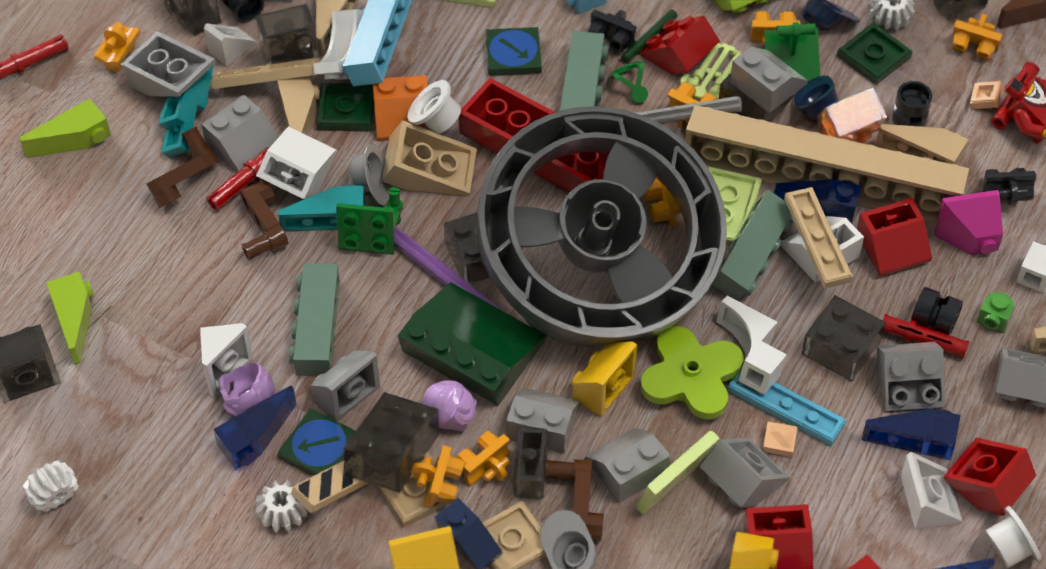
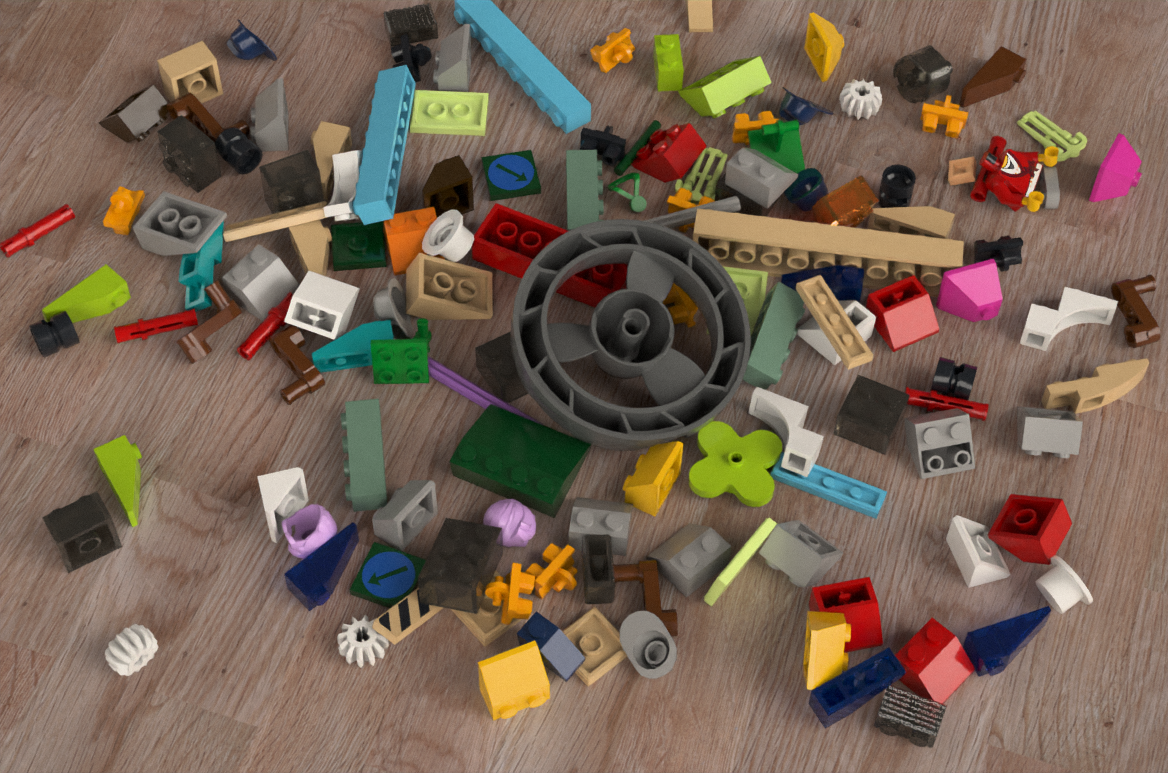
camera: 10 degrees left, 0 degrees up
(28, 163) = (53, 334): none -> black wheel
(127, 166) = (155, 326): none -> red pin
(226, 42) = (231, 195): white slope -> none
(445, 57) = (449, 187): none -> dark brown slope
(780, 439) = (828, 517): light nougat tile -> none
(874, 53) = (851, 142): dark green tile -> none
(920, 431) = (958, 494): clear blue slope -> none
(996, 312) = (1008, 373): bright green plate -> none

